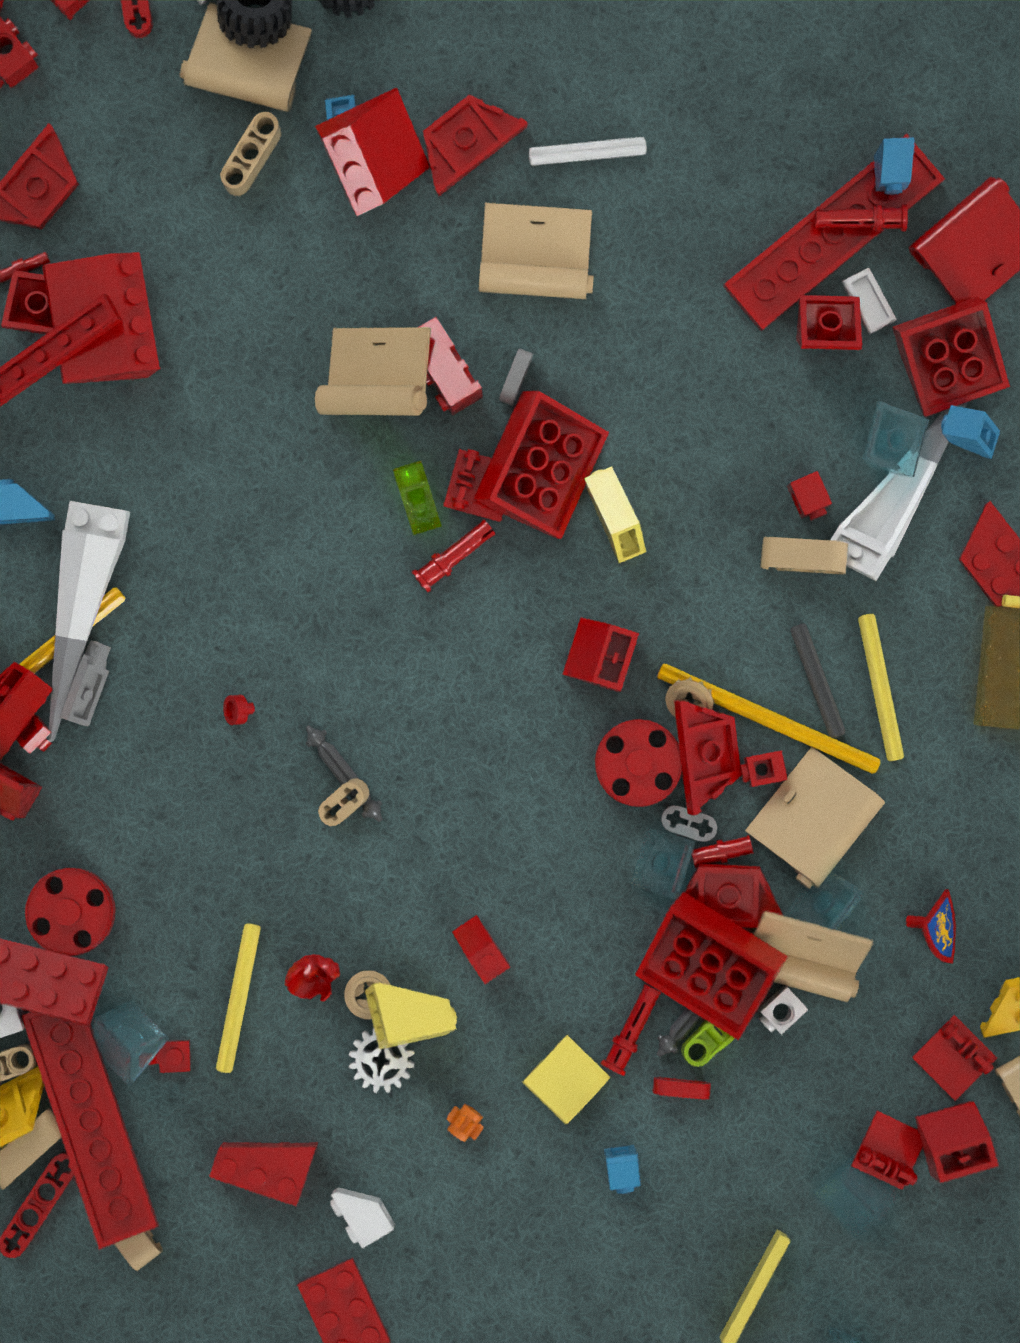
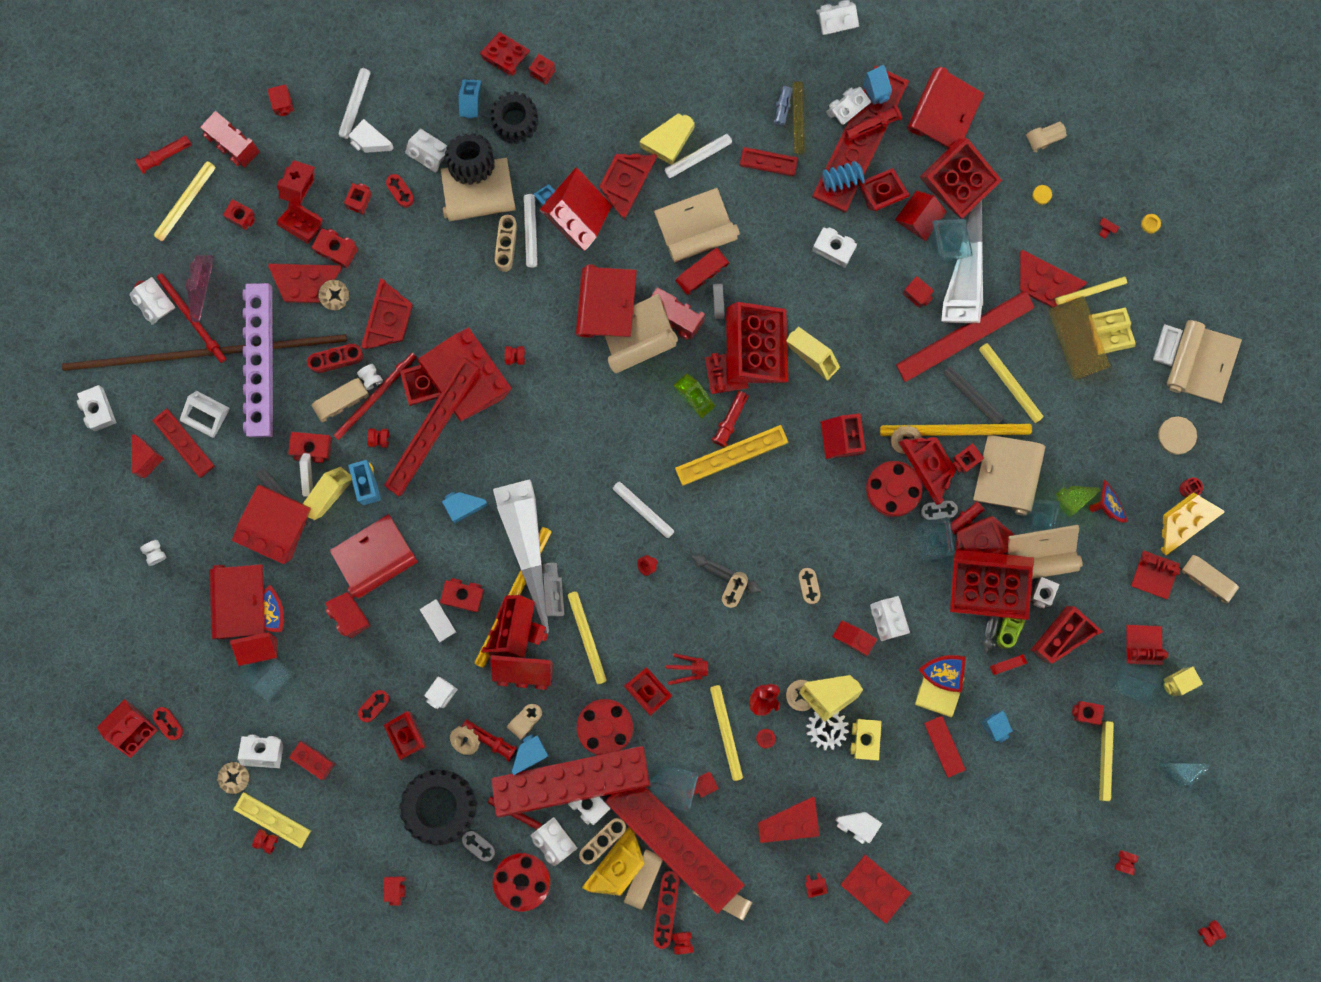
camera: 30 degrees left, 5 degrees down
(39, 1262) = (682, 942): none -> red wheel
(105, 773) = (586, 637): none -> light yellow axle
(153, 889) = (648, 691): none -> red slope
(188, 322) = (510, 355): none -> red wheel
(241, 889) = (699, 668): none -> red plant
(259, 1272) = (815, 887): none -> red tile
(269, 628) = (643, 510): none -> white axle
(290, 1031) = (765, 738): none -> red tile
(295, 151) = (530, 230): none -> white axle
(352, 304) = (601, 302): none -> red door
(425, 1118) = (871, 728): none -> light yellow brick
(430, 608) = (731, 455): none -> yellow plate
(445, 844) = (804, 587): none -> tan beam
(465, 1122) = (893, 743): orange gear -> none
(513, 321) = (701, 271): none -> red beam
(536, 1160) = (944, 746): none -> red tile
(545, 944) = (889, 618): none -> white bracket
(556, 105) = (668, 138): none -> light yellow slope
(585, 1059) = (945, 672): none -> shield
(649, 996) = (964, 620): red pin -> none
(685, 205) = (768, 161): none -> red tile
(722, 391) = (840, 256): none -> white brick
(744, 133) = (783, 105): none -> sand blue pin
(759, 160) = (798, 117): none -> clear yellow axle
(771, 1218) = (1096, 713): none -> red brick
(779, 276) = (842, 176): none -> dark azure piece
(781, 1085) = (1064, 635): none -> red wedge
(804, 555) = (932, 327): tan beam -> none
(839, 176) = (852, 103): none -> white bracket
(847, 589) = (964, 336): none -> red tile
(868, 380) = (920, 213): none -> red slope
(873, 305) = (903, 169): white tile -> none
(886, 37) = (838, 17): none -> white bracket
(891, 896) = (1075, 498): none -> clear neon green slope
(916, 1229) = (1182, 681): none -> light yellow brick
(956, 1142) = (1180, 621): red slope -> none
(970, 430) = (992, 214): dark azure slope -> none

